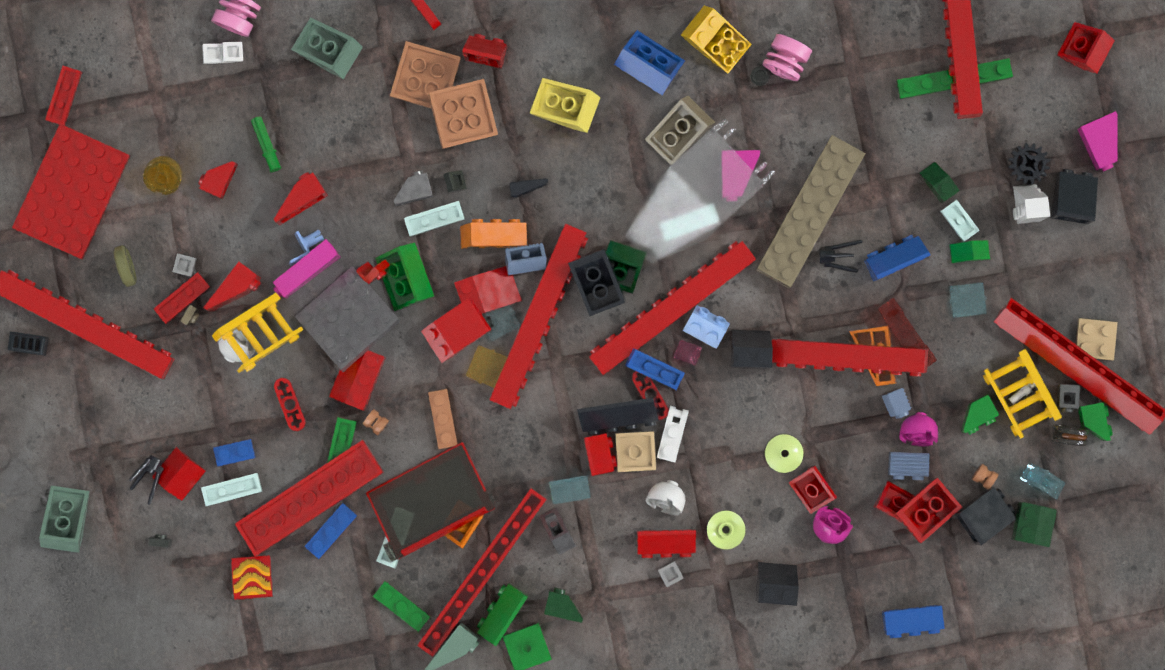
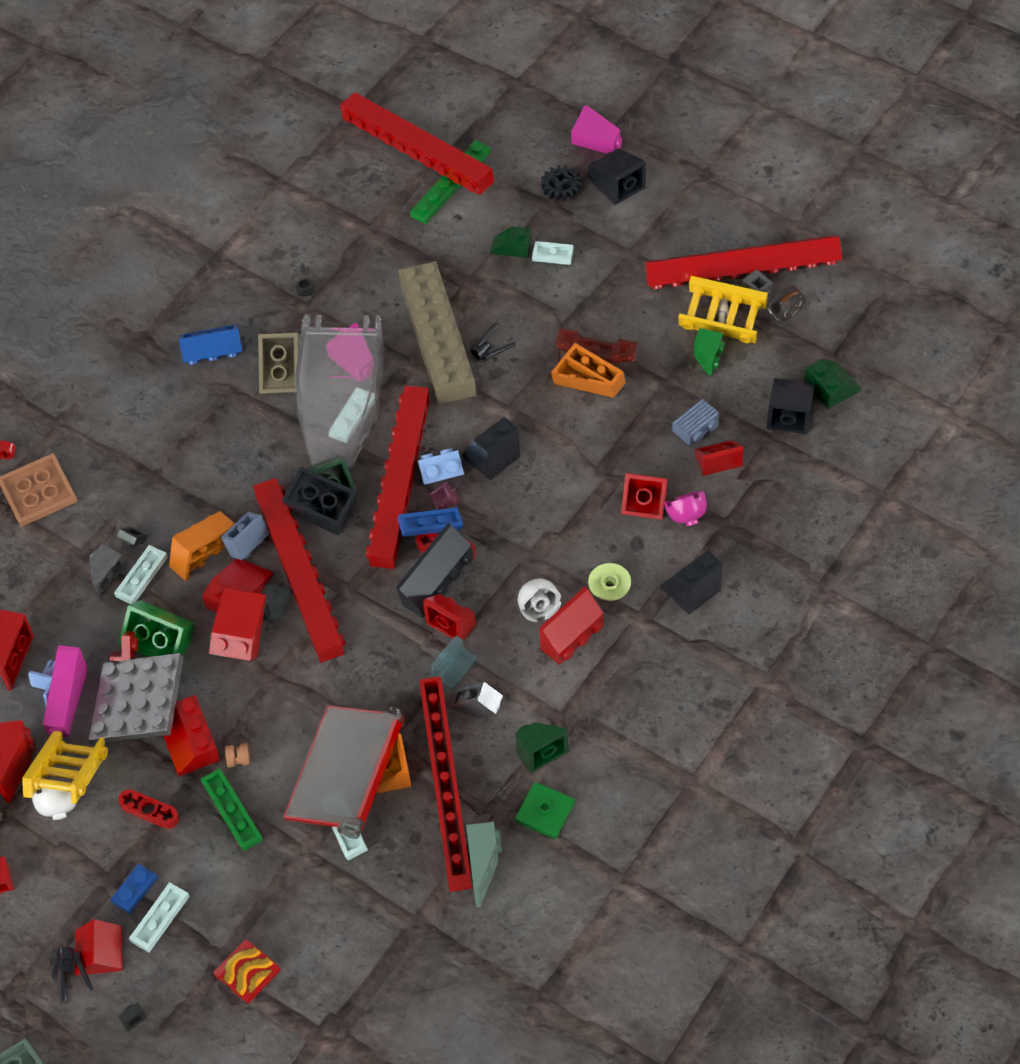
camera: 40 degrees left, 30 degrees down
(309, 498) = (235, 860): red plate -> none
(331, 531) = (281, 873): blue plate -> none
(401, 606) = (404, 876): green plate -> none
(442, 419) = (293, 707): nougat plate -> none
(463, 113) = (92, 485): nougat plate -> none
(485, 51) = (70, 430): red slope -> none
(486, 366) = (292, 641): clear yellow piece -> none
(501, 613) = (496, 795): green slope -> none
(523, 187) = (195, 492): black slope -> none
(565, 104) = (172, 417): light yellow slope -> none
(635, 451) = (478, 592): tan plate -> none
(670, 574) = (601, 651): light grey plate -> none
(672, 435) = (494, 559): white plate -> none
(716, 38) = (245, 290): yellow slope -> none
(776, 460) = (592, 505): yellowish green dish -> none
(785, 60) = (312, 254): bright pink wheel -> none
(849, 356) = (572, 379): red brick -> none
(896, 257) = (534, 306): blue slope -> none
(897, 403) = (639, 387): sand blue brick -> none
(913, 621) = (822, 516): blue brick -> none
(919, 429) = (678, 393): dark pink cylinder -> none
(928, 510) = (745, 426): red slope -> none
(967, 300) = (615, 295): clear light blue piece -> none
(969, 251) = (580, 265): green slope -> none
(985, 476) = (760, 382): nougat wheel -> none
(1030, 204) = (592, 196): white wedge -> none
(1042, 480) = (803, 349): clear light blue slope -> none
(1086, 47) = (521, 92): red slope -> none
(1094, 419) = (791, 277): green slope -> none
(1097, 338) = (732, 237): tan plate -> none

